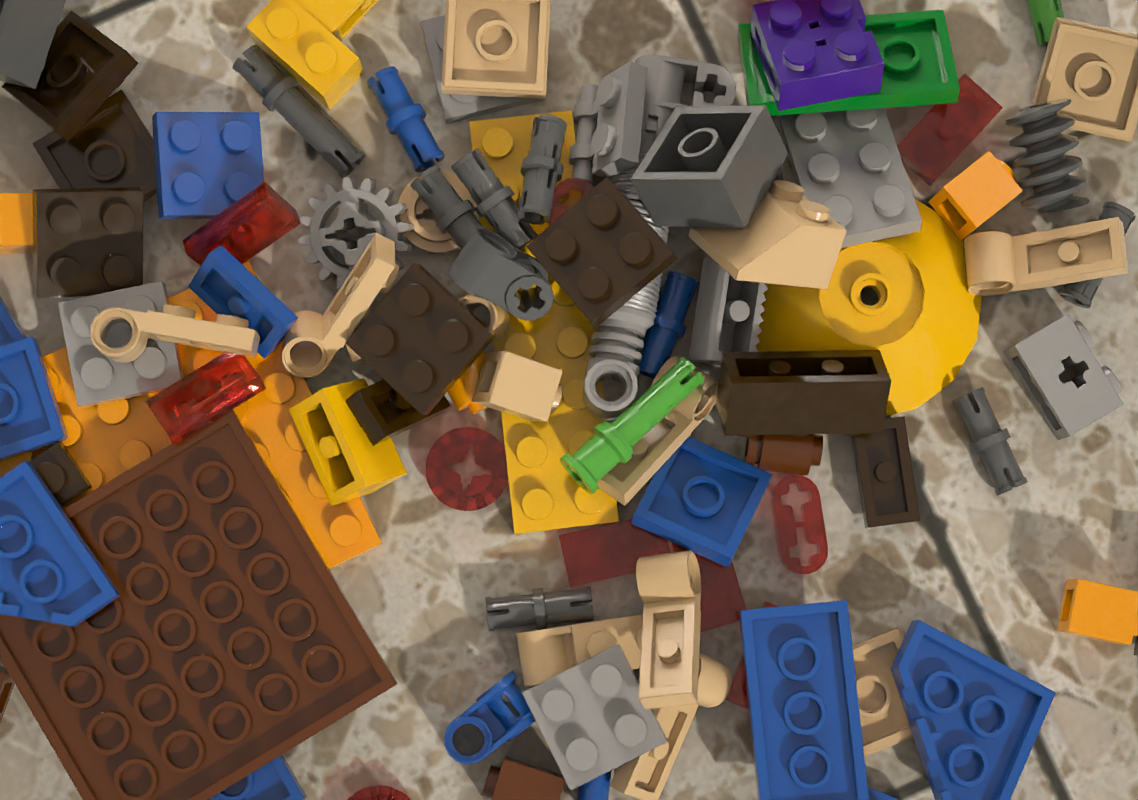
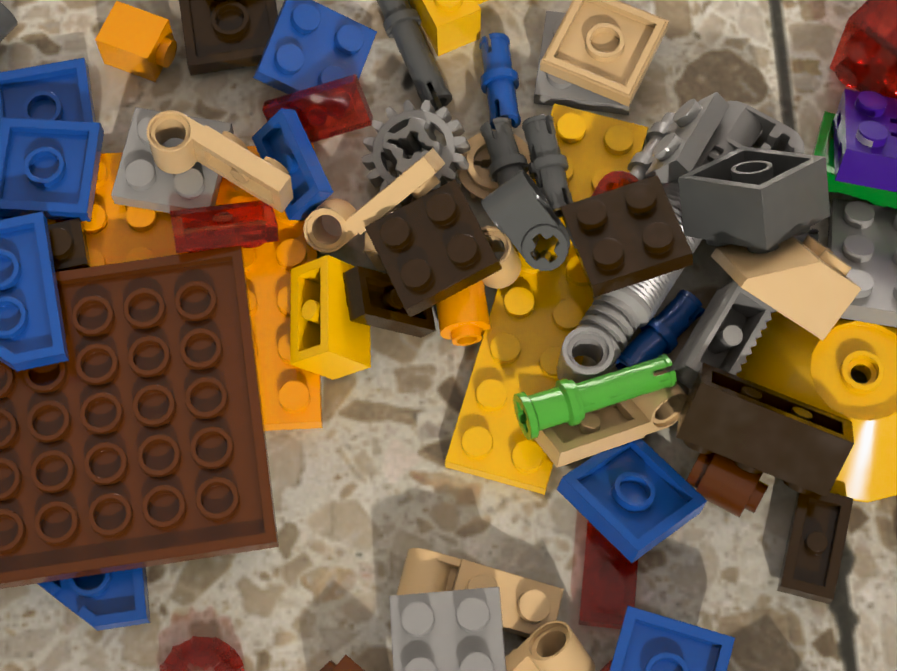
camera: 30 degrees right, 15 degrees down
(87, 240) = (184, 67): dark brown plate -> none
(452, 449) = (421, 368): clear red gear -> none
(493, 719) = (352, 619): blue piece -> none
(518, 386) = (503, 324): tan brick -> none
(539, 608) = (438, 537): dark grey pin -> none
(541, 169) = (601, 154): dark grey pin -> none
(607, 551) = (529, 516): clear red plate -> none
(670, 629) = (555, 594): tan plate -> none
(811, 522) = (727, 563): clear red beam -> none

